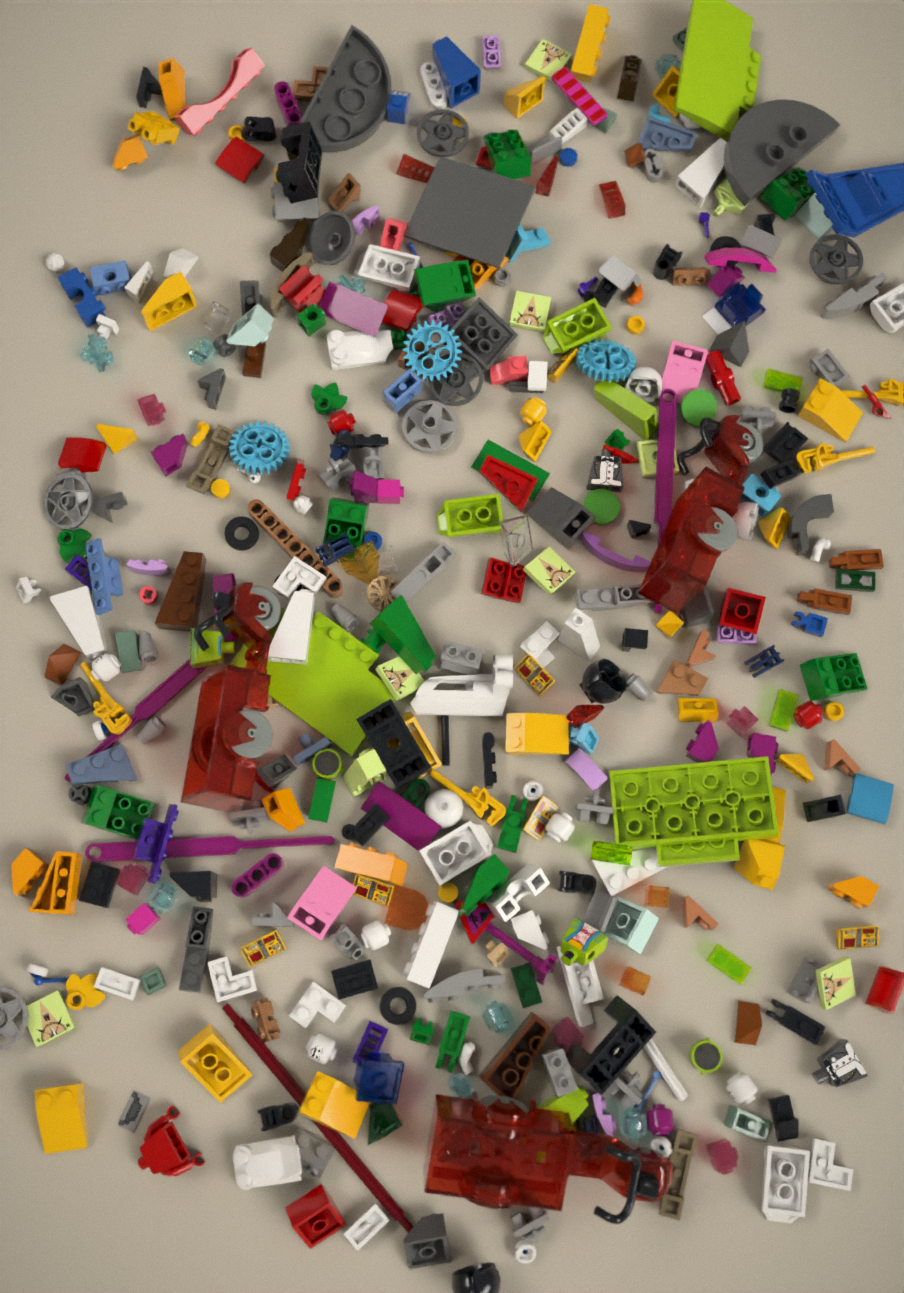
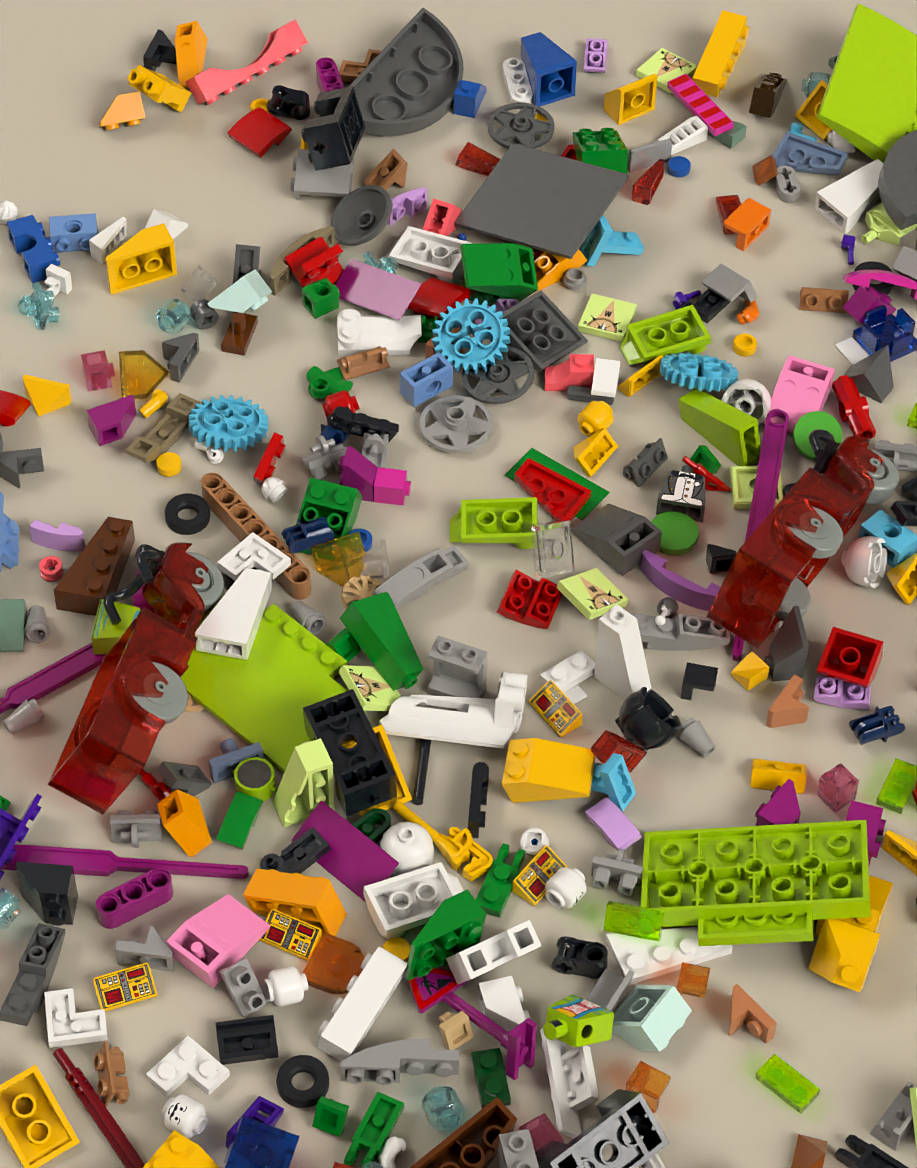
camera: 10 degrees right, 25 degrees down
(184, 410) = (139, 373): none -> clear yellow slope
(290, 246) = (307, 219): dark brown slope -> none
(352, 377) = (363, 363): none -> medium nougat hinge
(578, 438) = (648, 462): none -> dark grey hinge
(605, 580) = (670, 606): none -> dark grey hinge
(627, 208) = (748, 222): none -> orange panel
(668, 260) = (791, 280): black piece -> none
(682, 681) = (761, 739): medium nougat wing -> none

